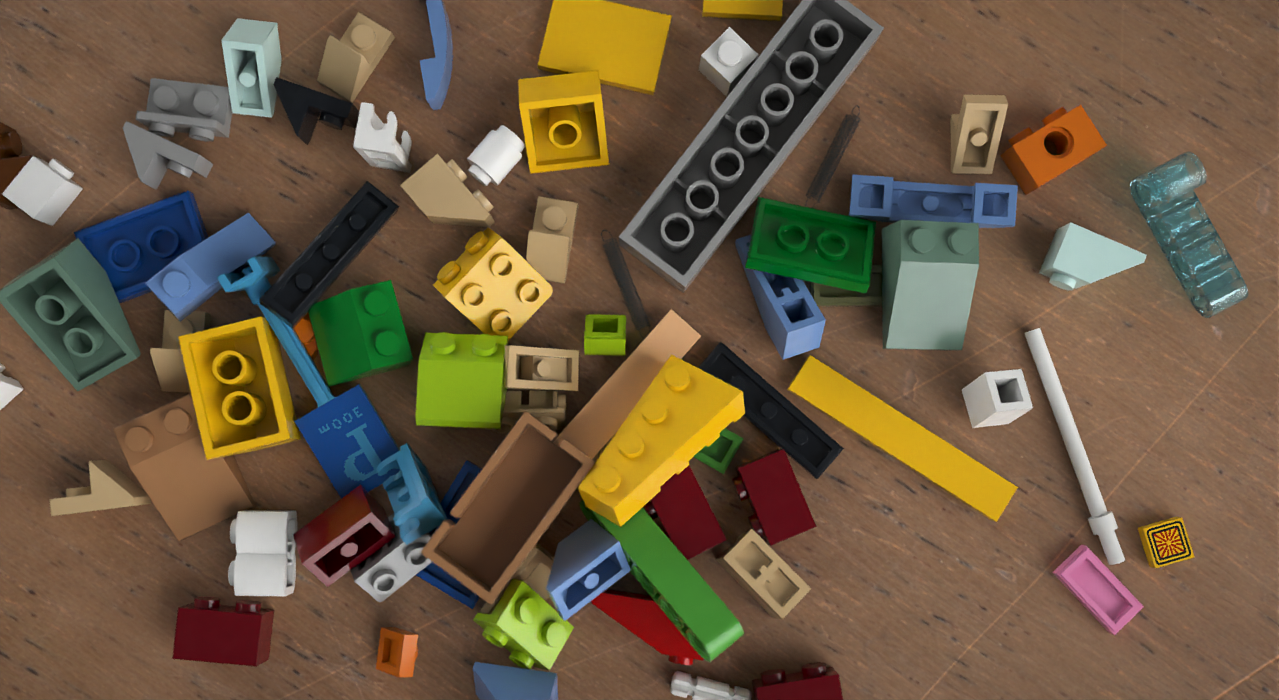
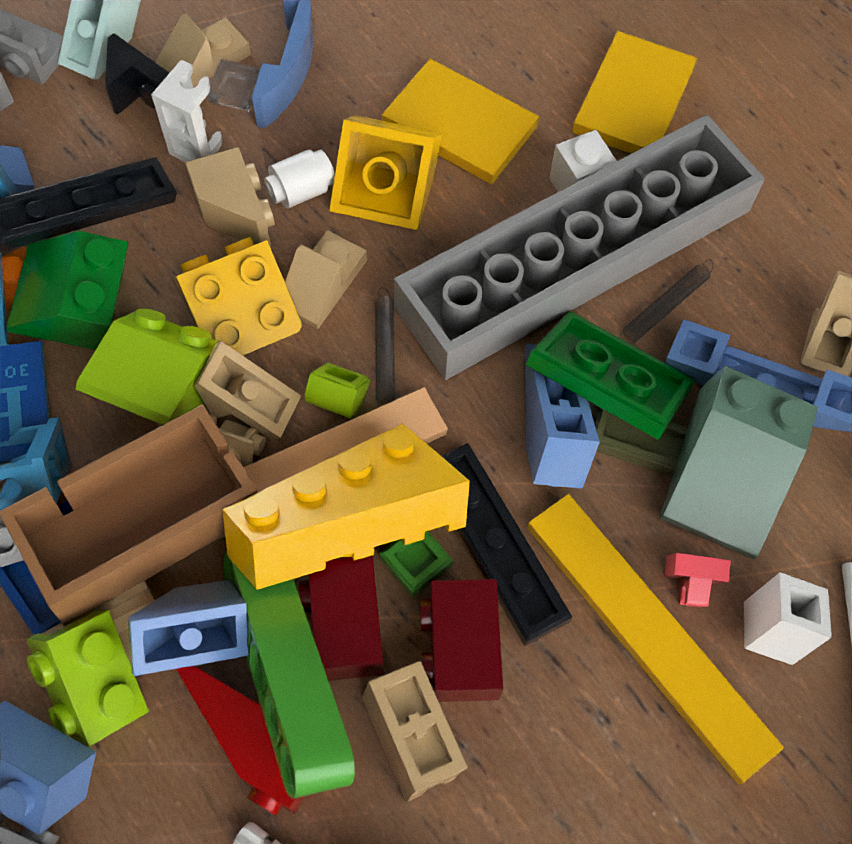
camera: 20 degrees right, 20 degrees down
(397, 78) = (233, 84): none -> clear tile
(923, 385) = (696, 576): none -> coral tile

